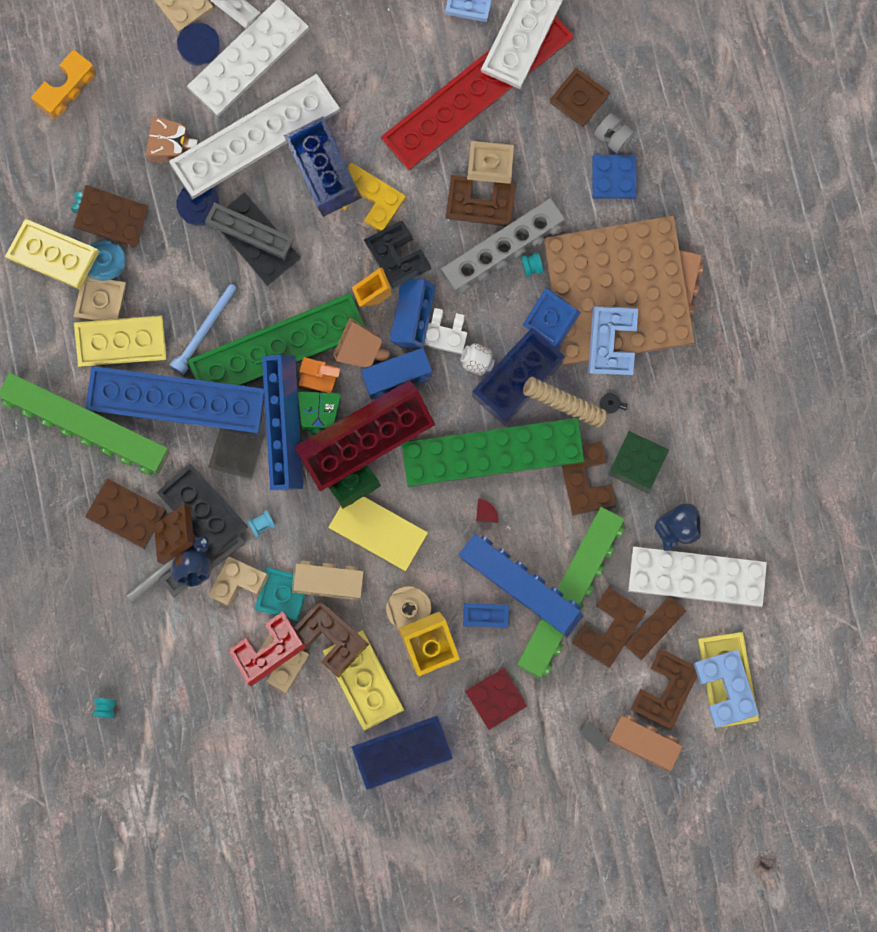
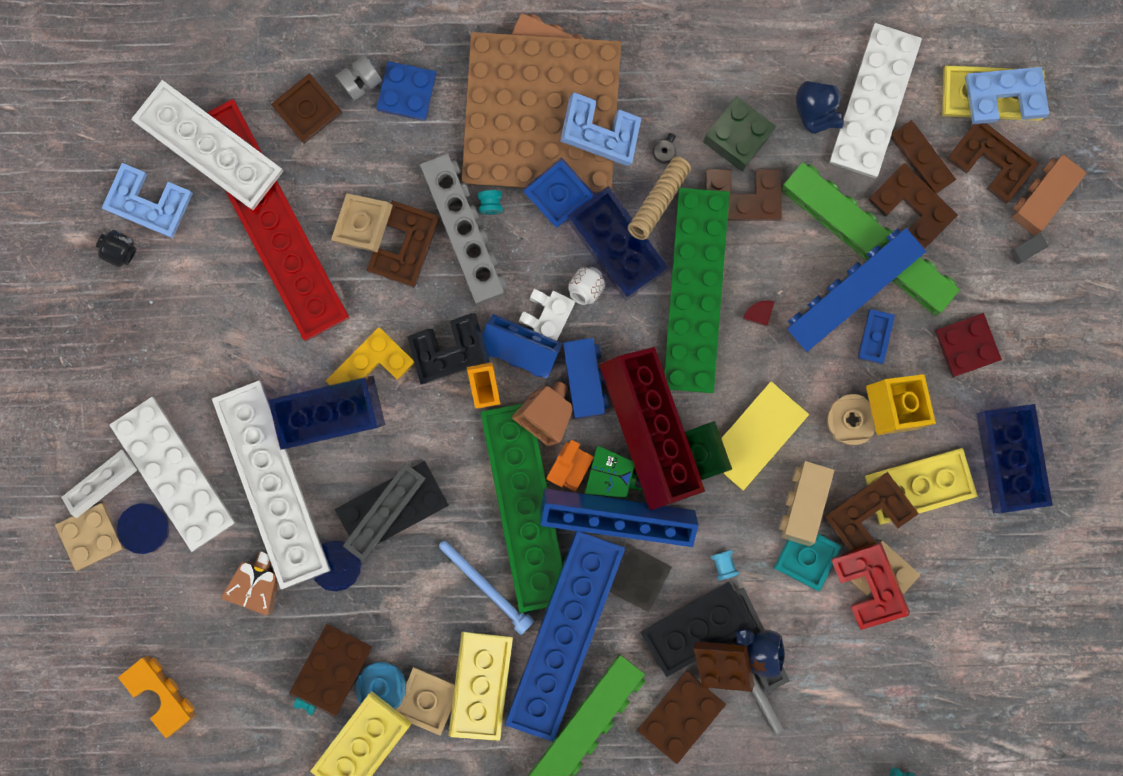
camera: 80 degrees left, 5 degrees up
(232, 577) = (778, 607): tan plate -> none

